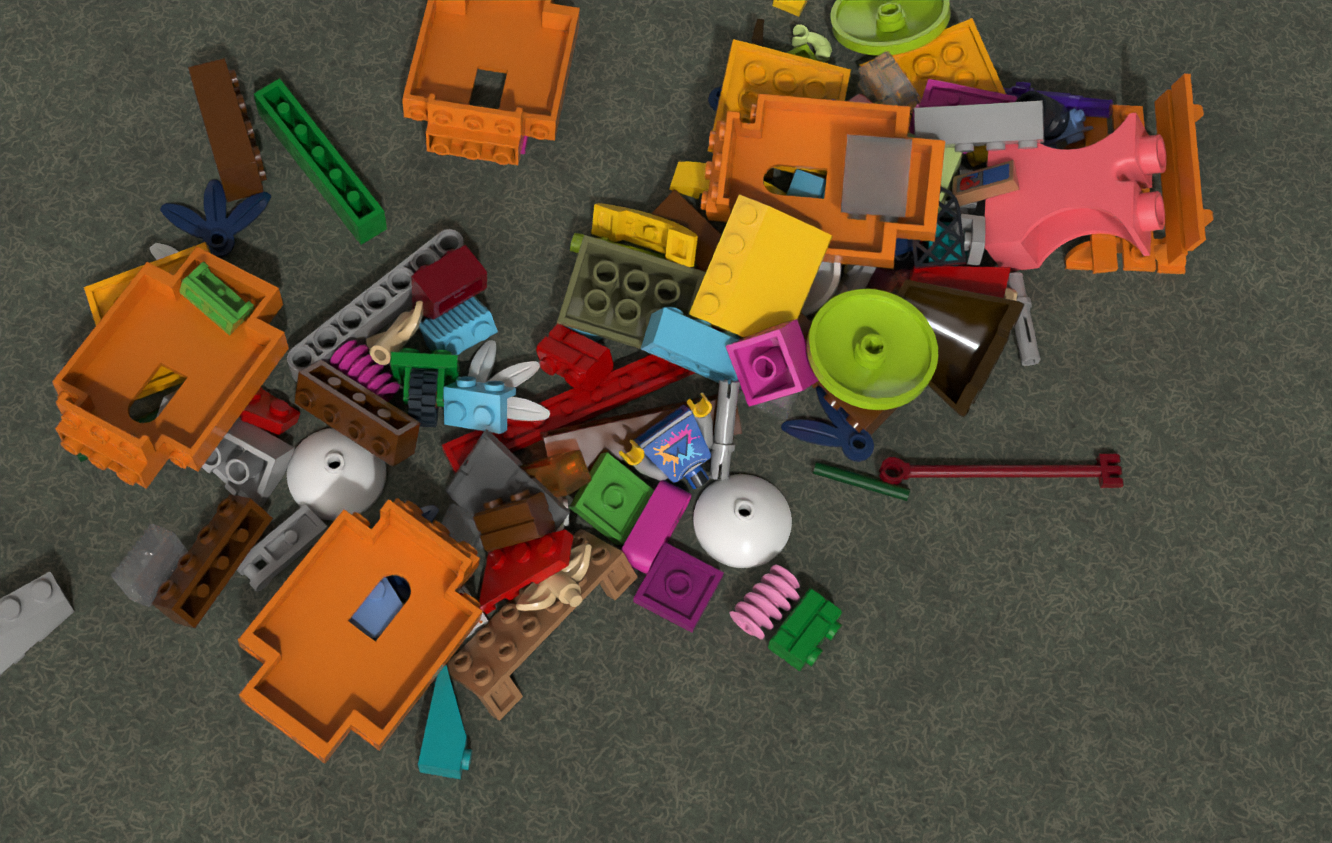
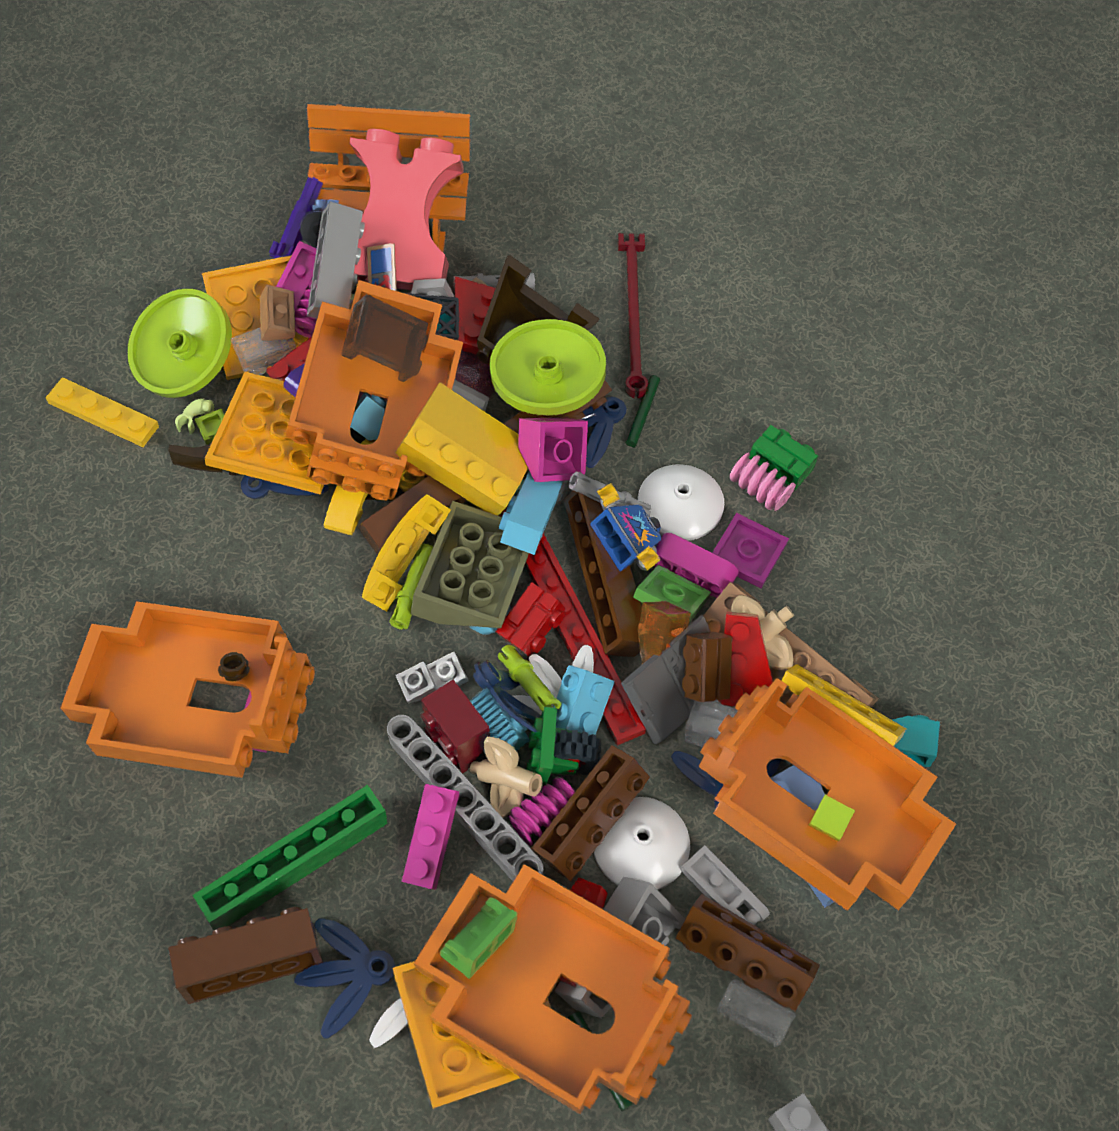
camera: 85 degrees left, 5 degrees down
(333, 630) = (831, 817): none -> lime tile
(339, 275) = (430, 836): none -> dark pink plate
(469, 660) = (798, 678): none -> yellow plate
(486, 311) = (497, 682): none -> dark blue plant
(512, 88) = (233, 667): none -> dark brown plate
(514, 276) = (424, 679): none -> white slope
(514, 352) = (522, 672): none -> lime pin
(921, 88) = (277, 313): none -> medium nougat slope

